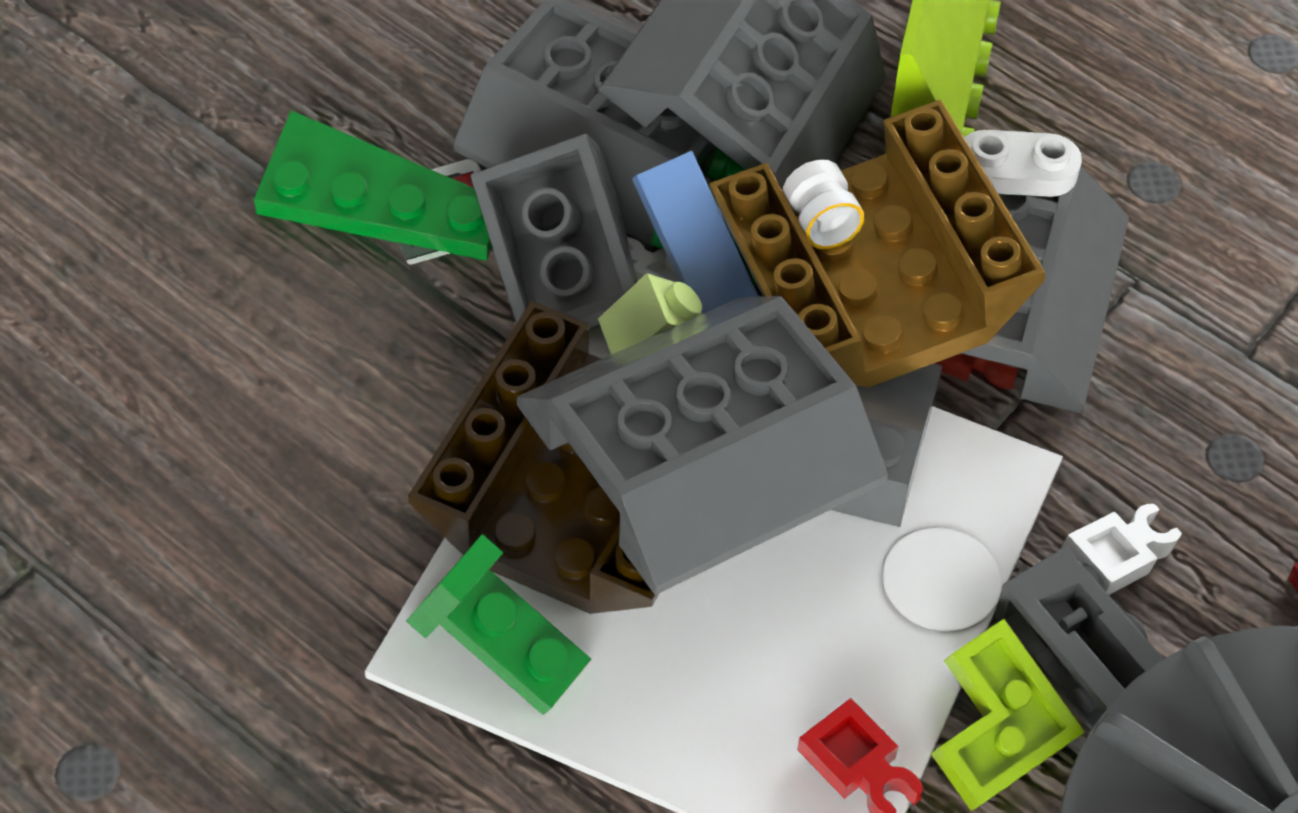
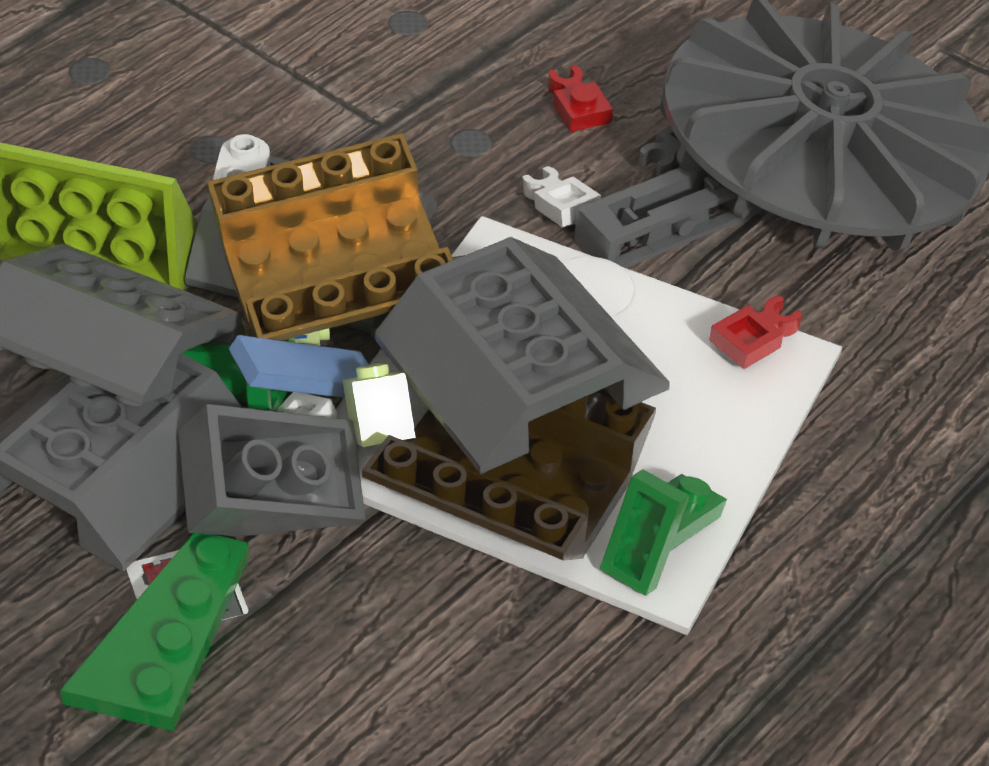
camera: 90 degrees left, 10 degrees down
(823, 204) = (297, 263): white wheel -> none
(1020, 720) = (708, 257): lime plate -> none

